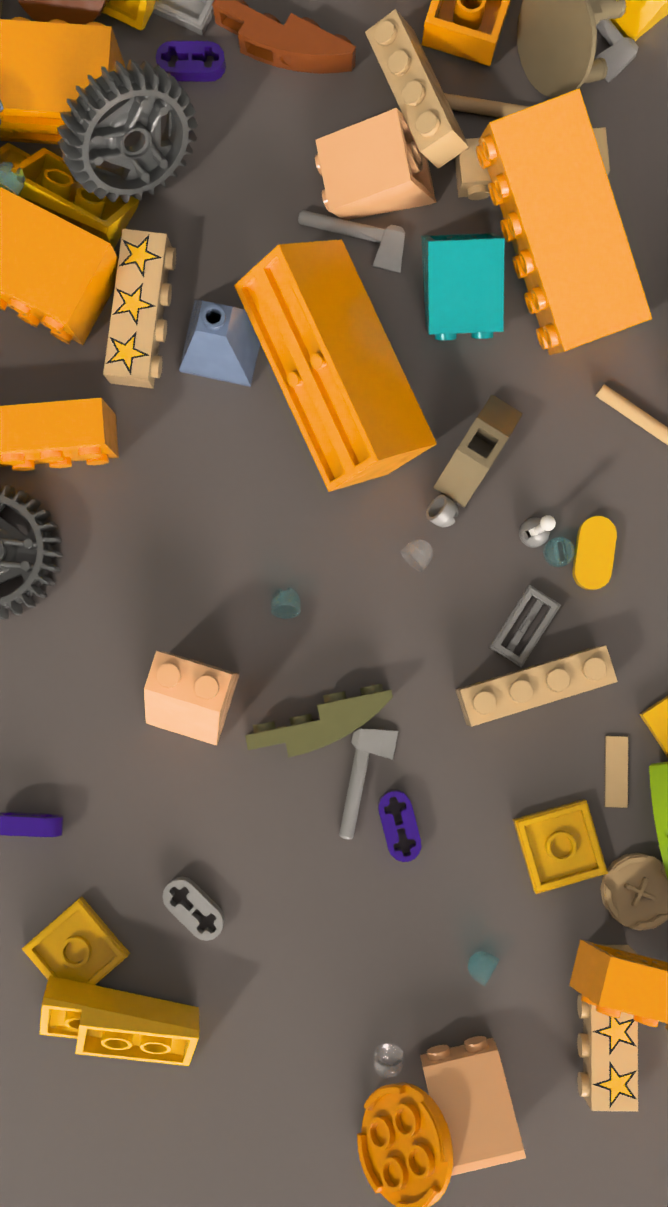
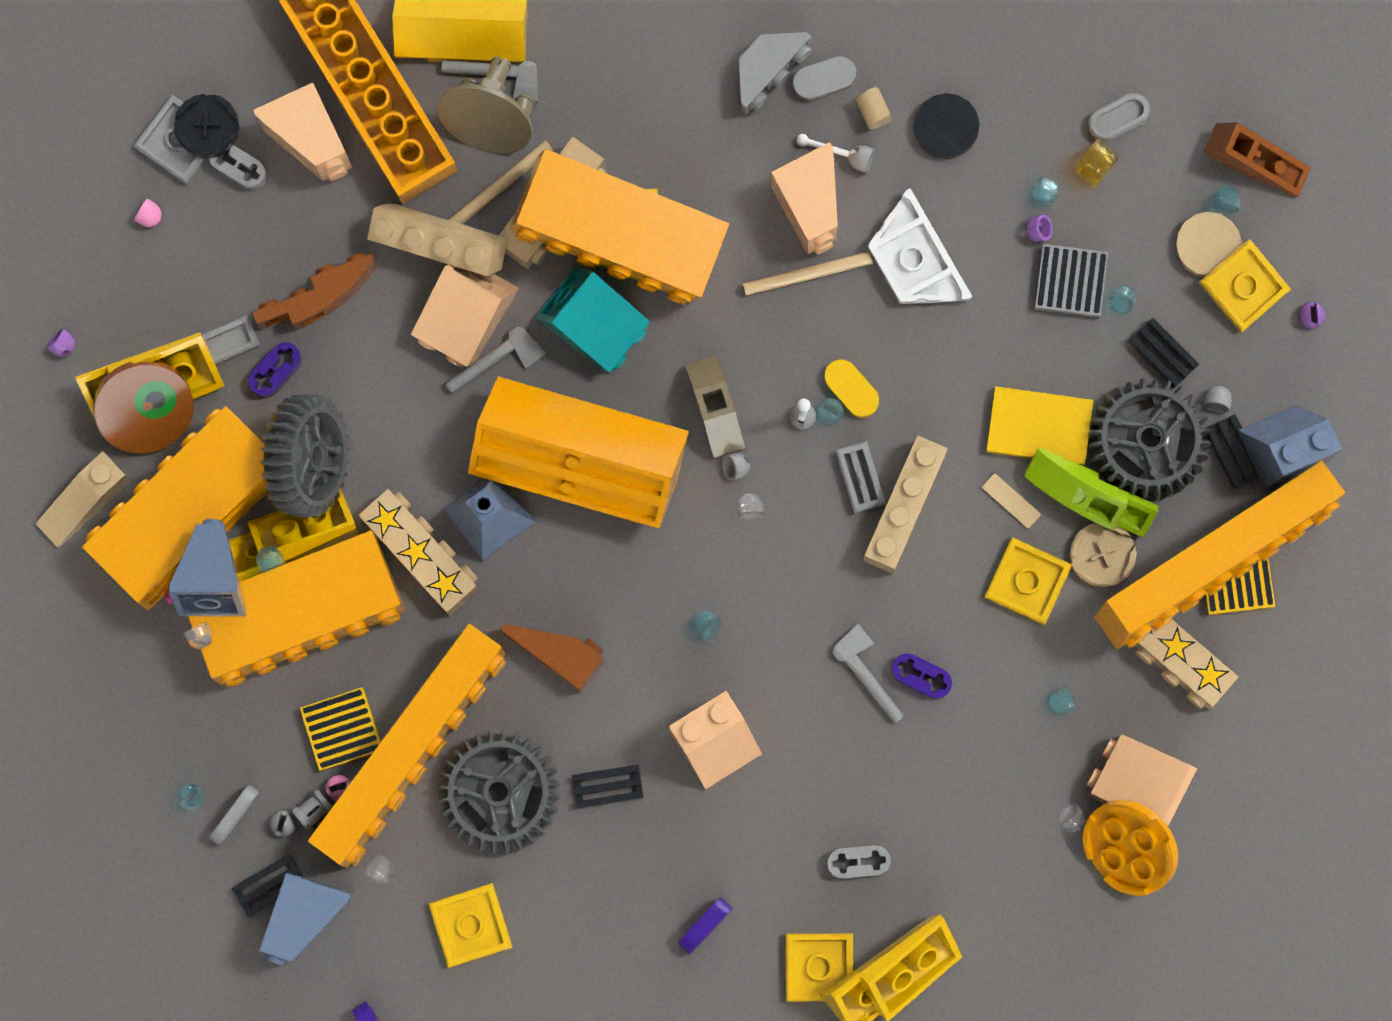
camera: 45 degrees left, 5 degrees down
(54, 619) = (607, 786): none -> black tile
(155, 511) = (563, 654): none -> dark orange slope
(337, 719) = (813, 656): olive slope -> none

